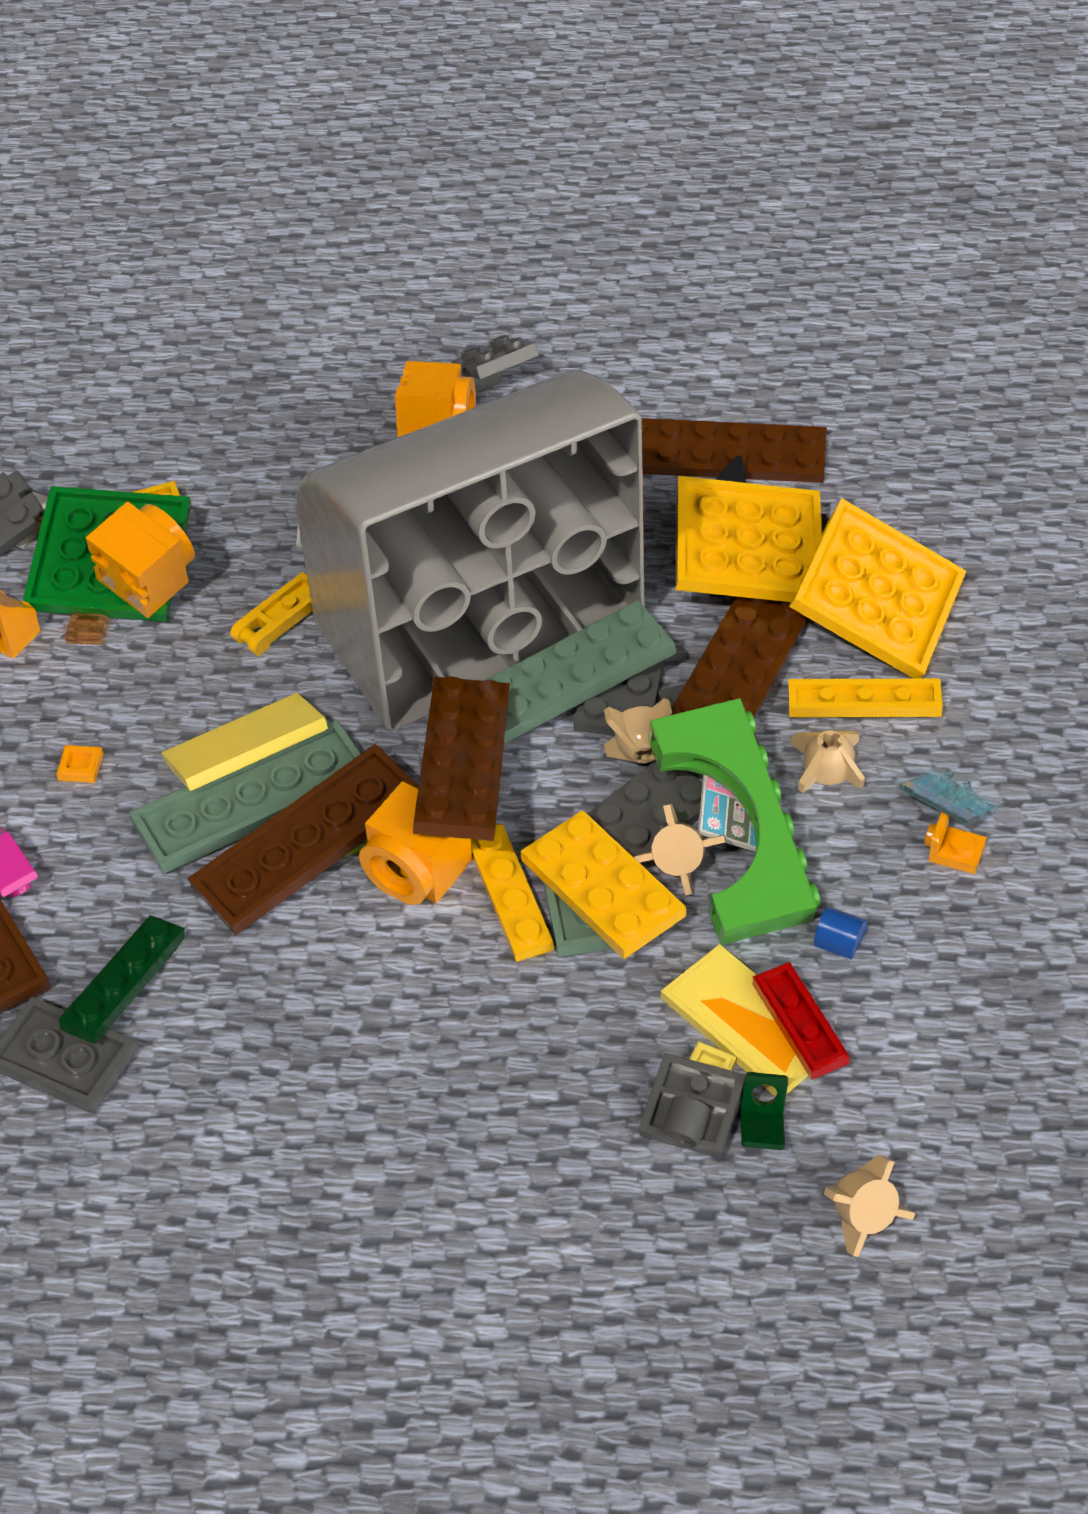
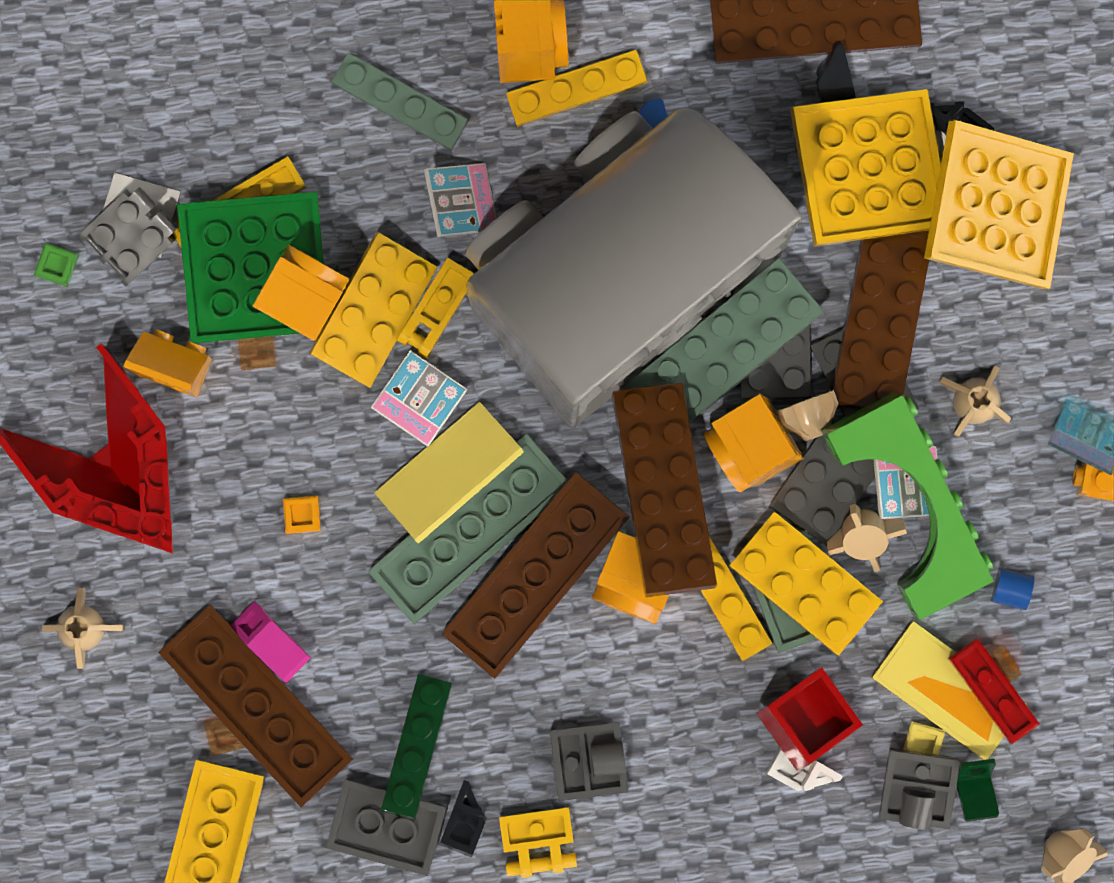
camera: 15 degrees left, 35 degrees up
(152, 1069) = (464, 823): none -> black slope
(207, 604) = (373, 310): none -> yellow plate
(229, 1083) = (537, 830): none -> yellow plate
(235, 677) = (419, 398): none -> piece
(280, 450) = (399, 101): none -> sand green plate
(312, 1024) = (589, 761): none -> dark grey plate
(555, 1073) = (803, 779): none -> white slope
(574, 744) = (752, 444): none -> light orange piece
(575, 1006) = (809, 719): none -> red piece
(820, 991) = (1005, 662): none -> clear orange tile
(865, 697) = (999, 324): yellow plate -> none

